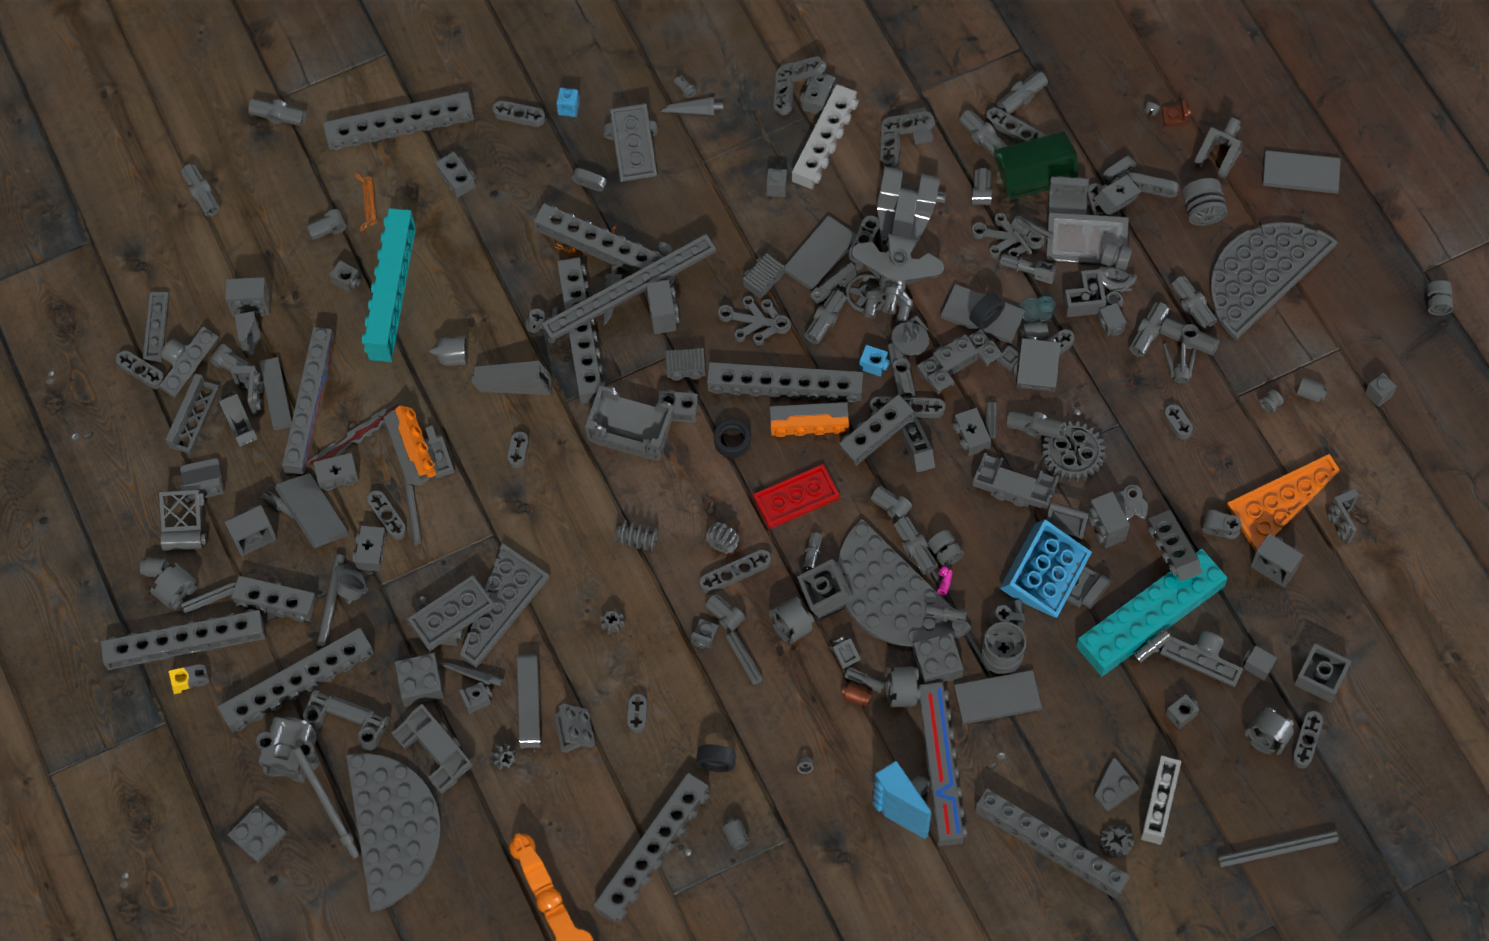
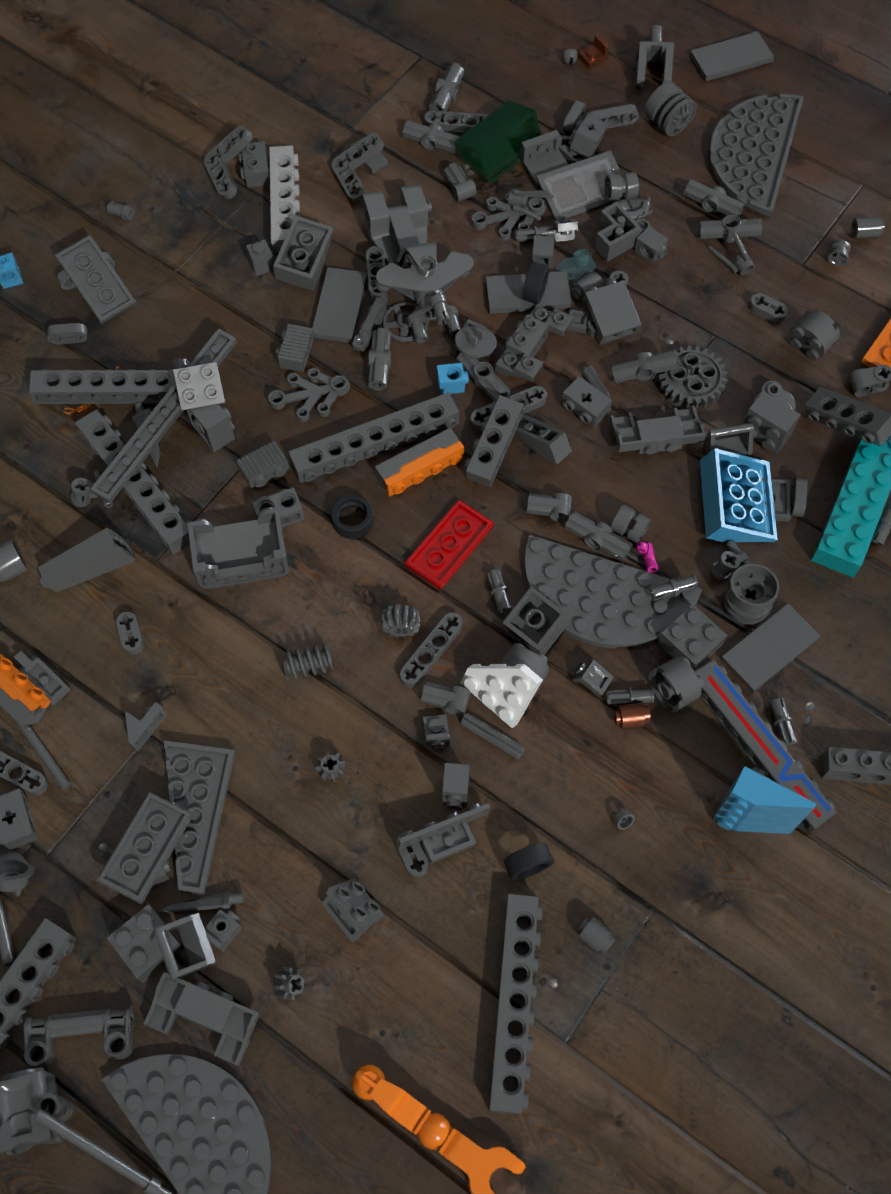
camera: 30 degrees left, 0 degrees up
(452, 696) = (194, 941): none -> dark grey tile
(489, 528) = (141, 730): none -> dark grey slope
(529, 701) = (285, 903): dark grey beam -> none
(664, 278) = (199, 386): none -> light grey hinge
(668, 712) = (445, 837): none -> dark grey bracket
(693, 679) = (455, 785): none -> dark grey brick
(702, 106) = (143, 224): dark grey bar -> none
(767, 626) = (503, 688): none -> white plate
(812, 196) = (303, 253): none -> dark grey slope
(970, 756) = (783, 721): none -> dark grey axle
(1015, 284) = (543, 250): none -> dark grey brick
(1149, 329) = (690, 239): dark grey piece -> none
(1196, 462) = (814, 334): none -> dark grey brick

